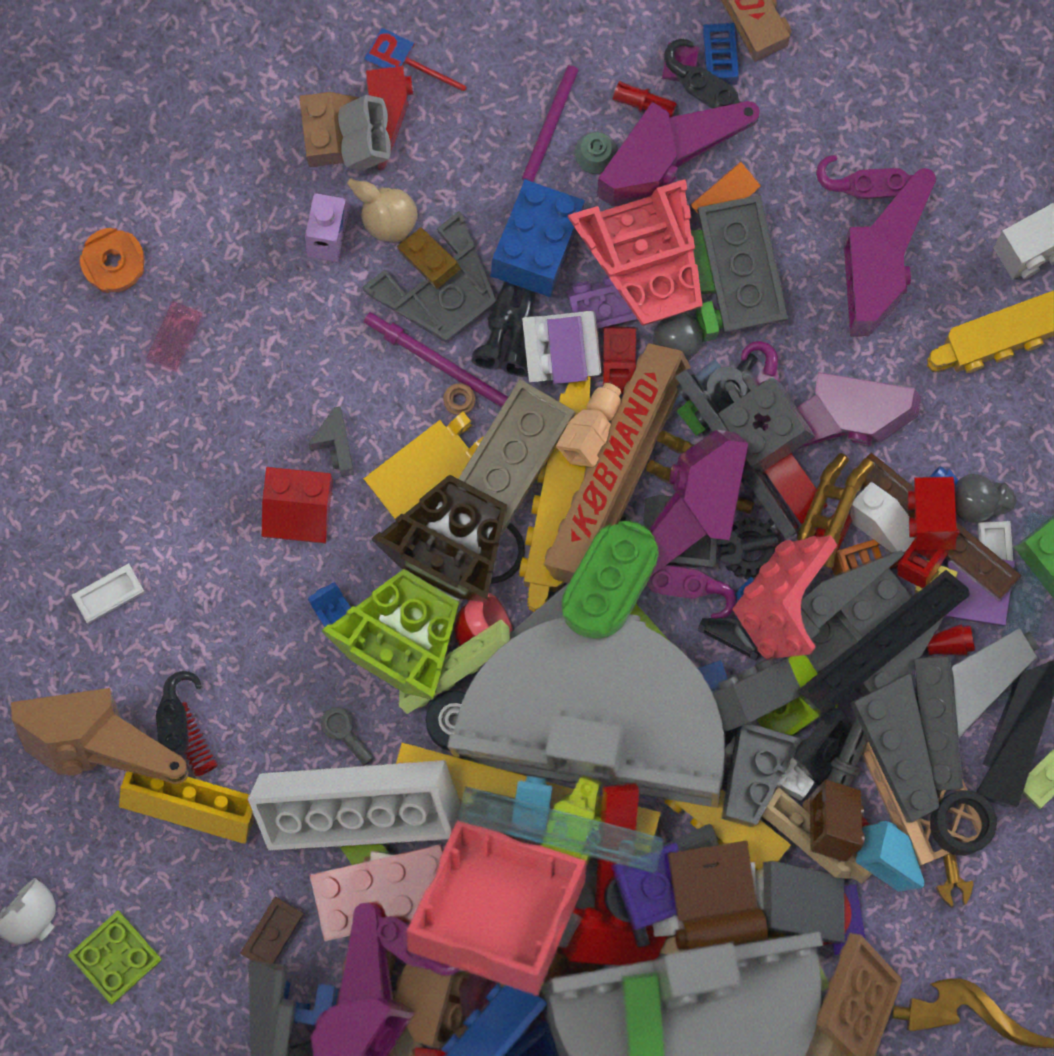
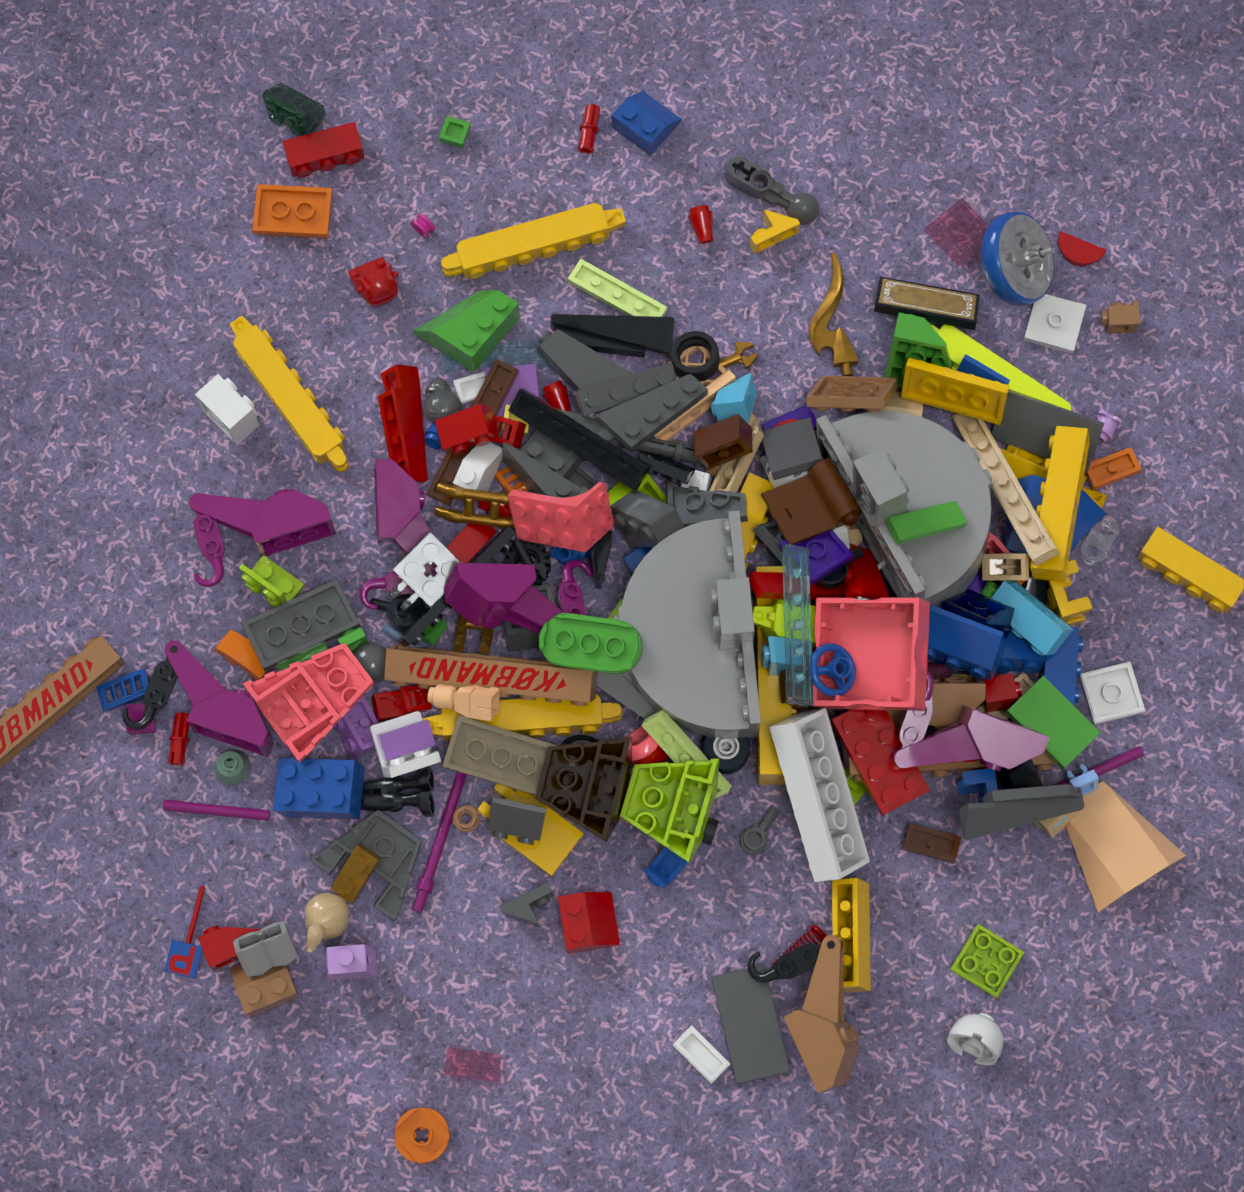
camera: 105 degrees left, 5 degrees down
(123, 657) = (750, 1026): none -> dark grey tile
(361, 674) = (710, 831): none -> black tile
(434, 448) = (516, 820): none -> dark grey slope
(482, 869) = (840, 667): none -> blue piece
(806, 244) = (271, 581): none -> lime bracket
(970, 449) = (404, 419): none -> red wedge

